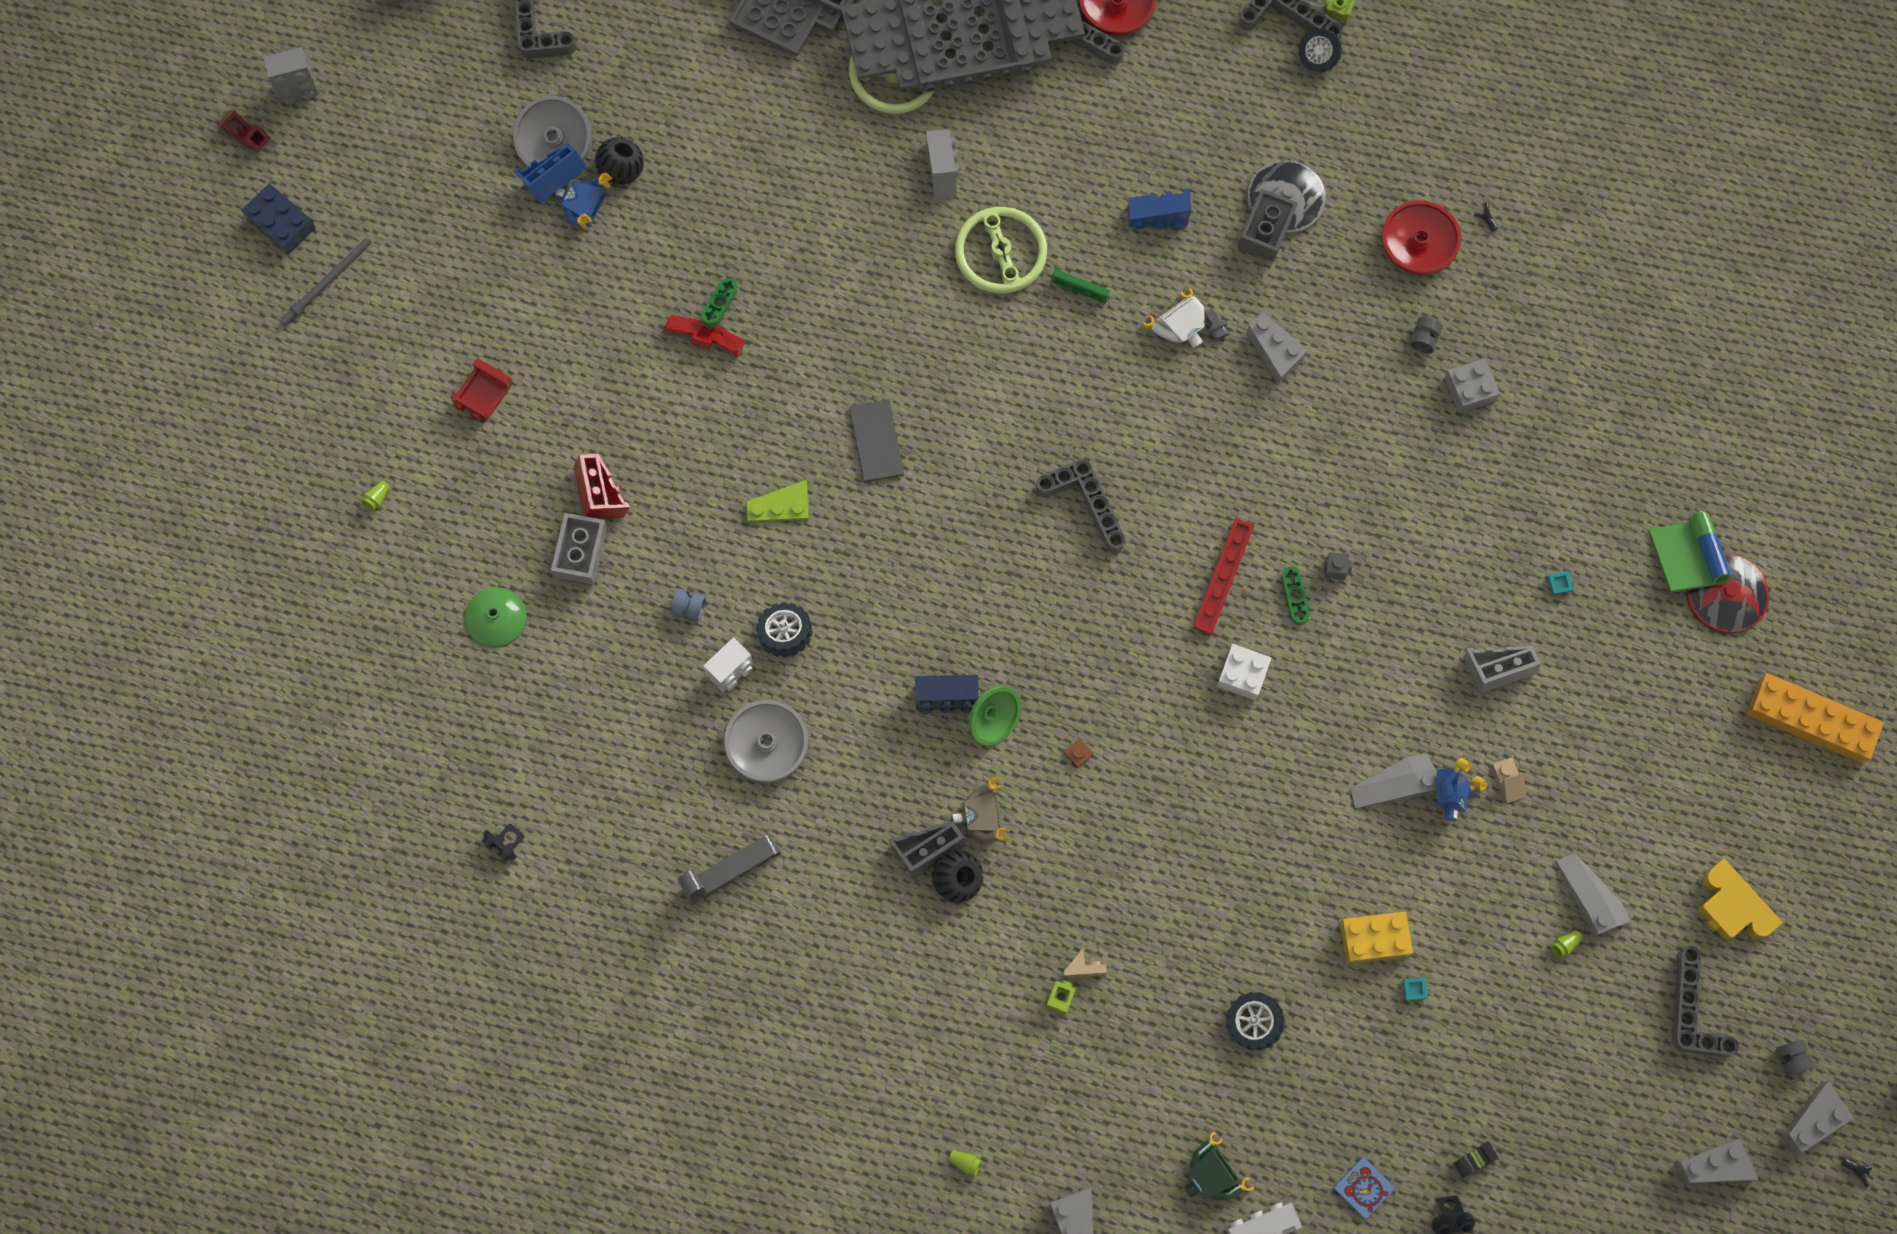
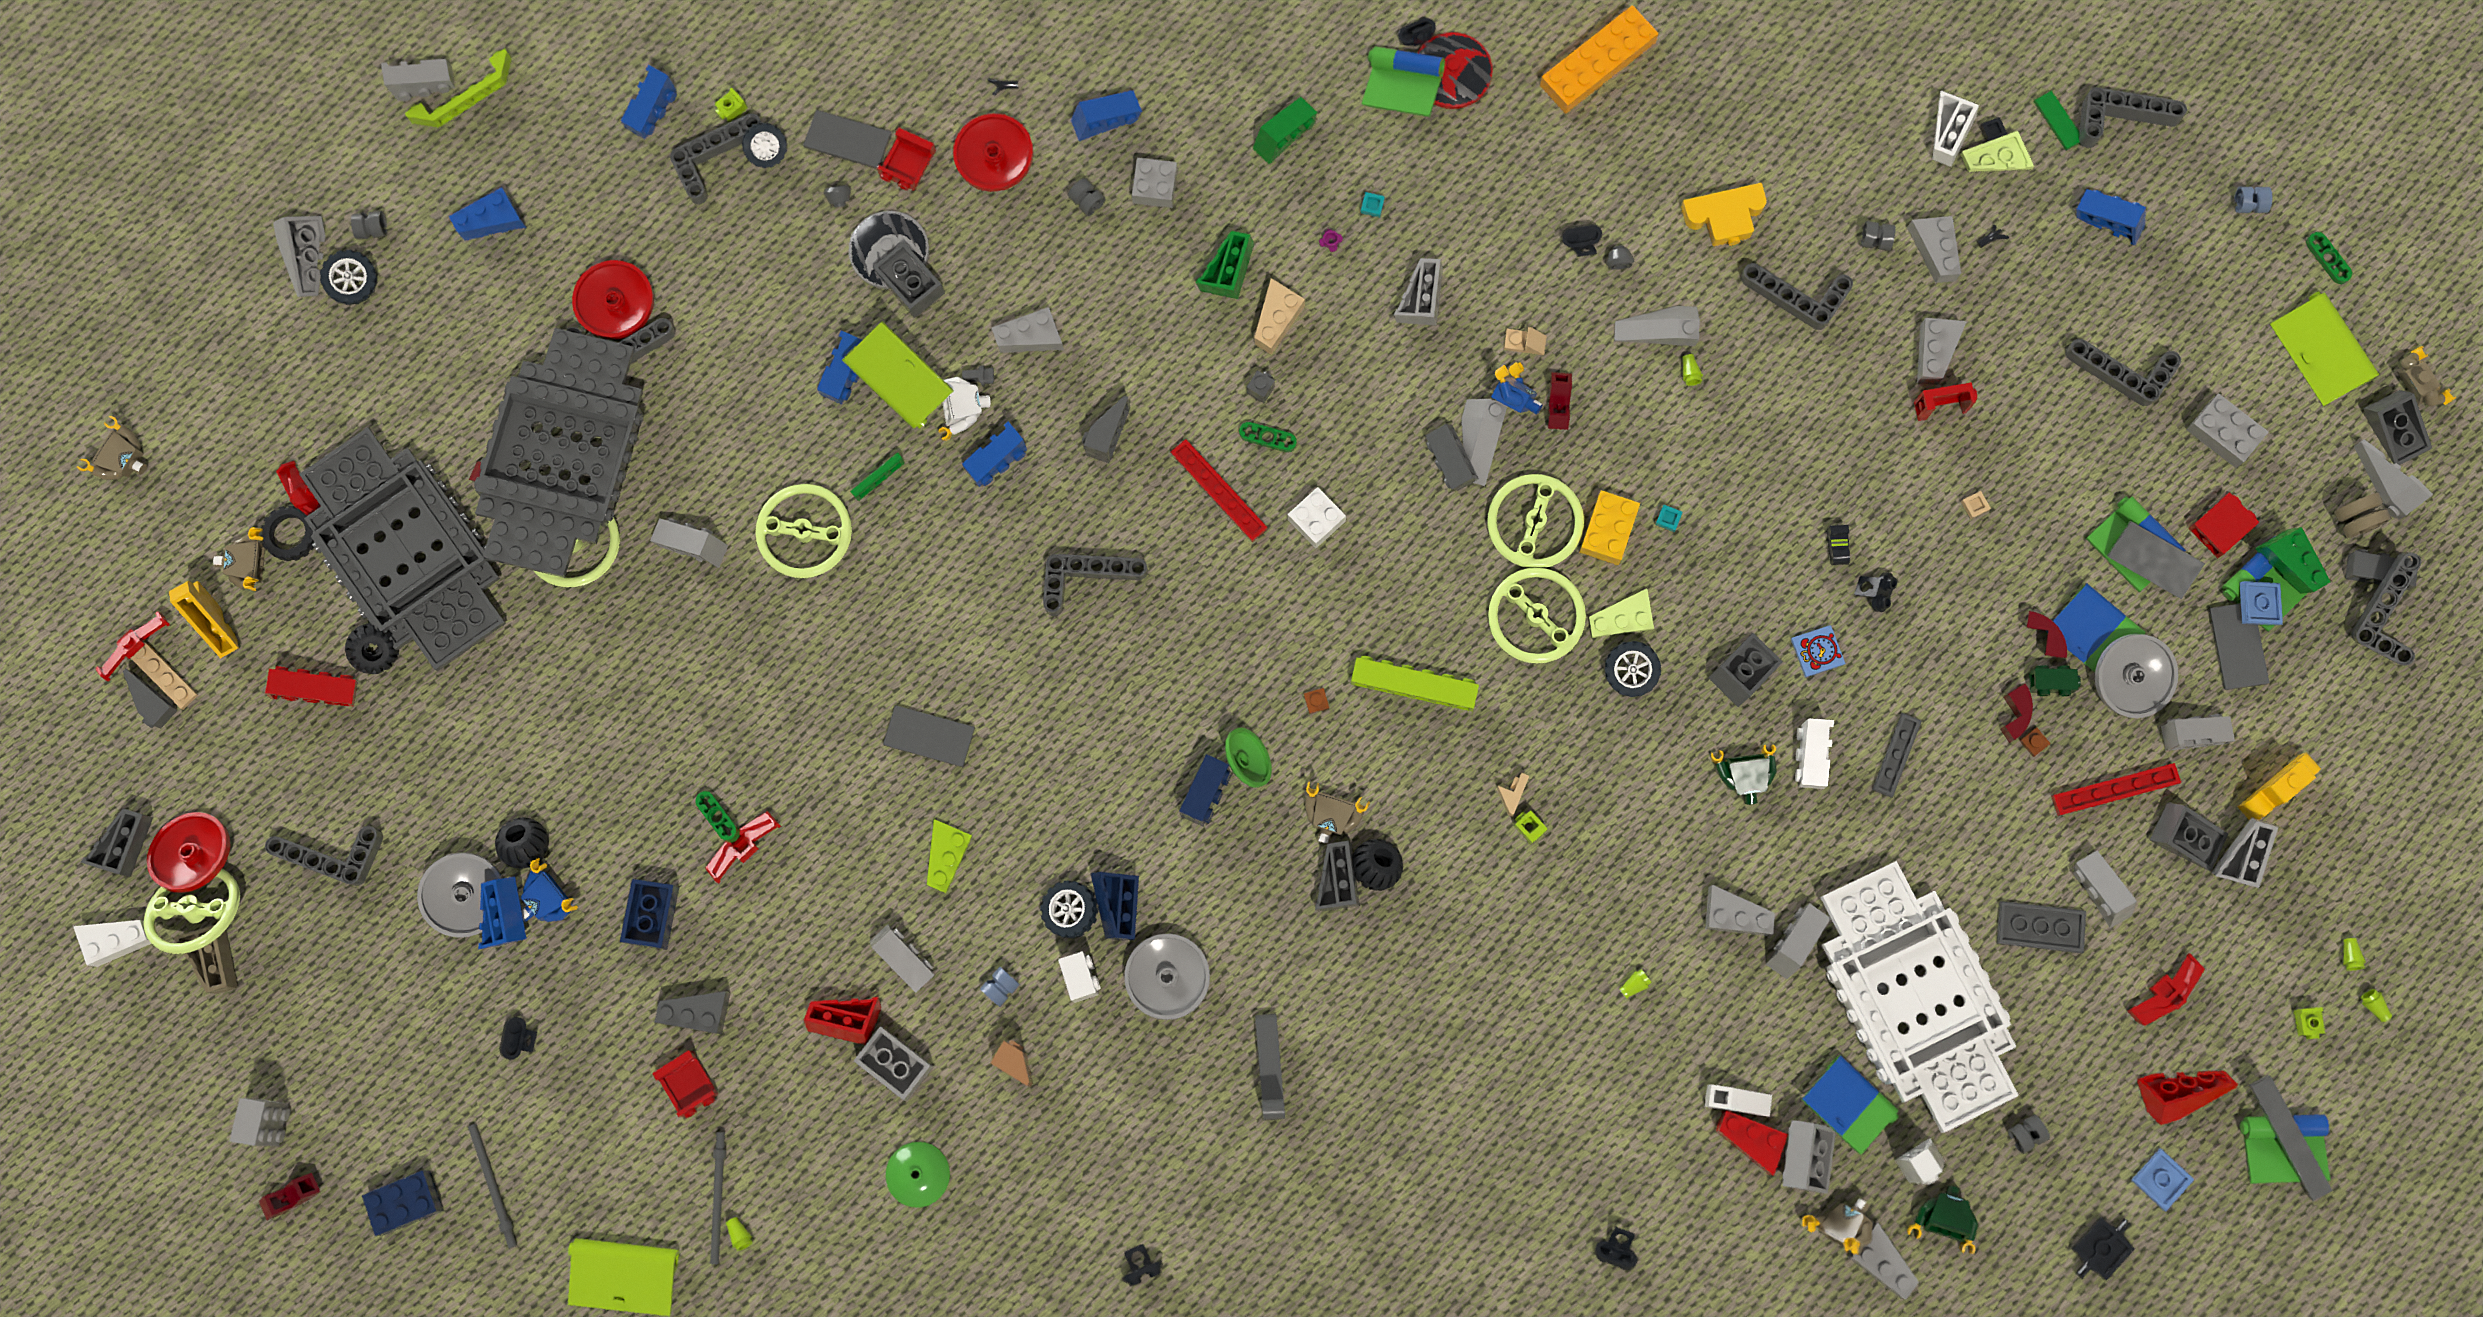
camera: 55 degrees left, 5 degrees up
(298, 420) = (611, 1271): none -> lime door
(436, 447) = (719, 1155): none -> dark grey bar
(454, 238) = (515, 1038): none -> black bracket
(545, 369) = (696, 1012): none -> dark grey wedge
(609, 289) = (649, 914): none -> dark blue brick
(628, 647) = (1013, 1062): none -> medium nougat slope
(672, 511) = (902, 957): none -> light grey wedge
(809, 666) = (1117, 903): none -> dark blue wedge
(1138, 831) = (1415, 684): none -> lime brick
(1151, 373) = (995, 456): none -> blue wedge
(1175, 254) = (897, 375): none -> lime door
(1222, 453) = (1105, 432): none -> dark grey slope
(1275, 873) = (1543, 622): none -> yellowish green piece
(1300, 992) = (1623, 617): none -> yellowish green wing
(1310, 131) = (838, 195): none -> dark grey cone
(1310, 1127) = (1745, 670): none -> dark grey slope
(1335, 869) = (1543, 482): none -> yellowish green piece
(1364, 764) = (1451, 457): none -> dark grey brick
(1365, 115) = (847, 139): none -> dark grey tile
(1373, 172) = (907, 160): none -> red panel
(1409, 549) = (1277, 316): none -> tan wedge
(1431, 486) = (1228, 268): none -> green wedge
(1470, 836) = (1559, 401): none -> dark red brick
(1510, 313) = (1104, 114): none -> blue wedge
(1510, 558) = (1329, 234): none -> magenta plate
(1585, 472) = (1284, 129): none -> green wedge
(1636, 784) = (1581, 238): none -> black bracket
(1636, 827) = (1620, 258): none -> dark grey cone
(1673, 1192) = (1928, 399): none -> red panel
(1744, 545) = (1417, 32): none -> black bracket

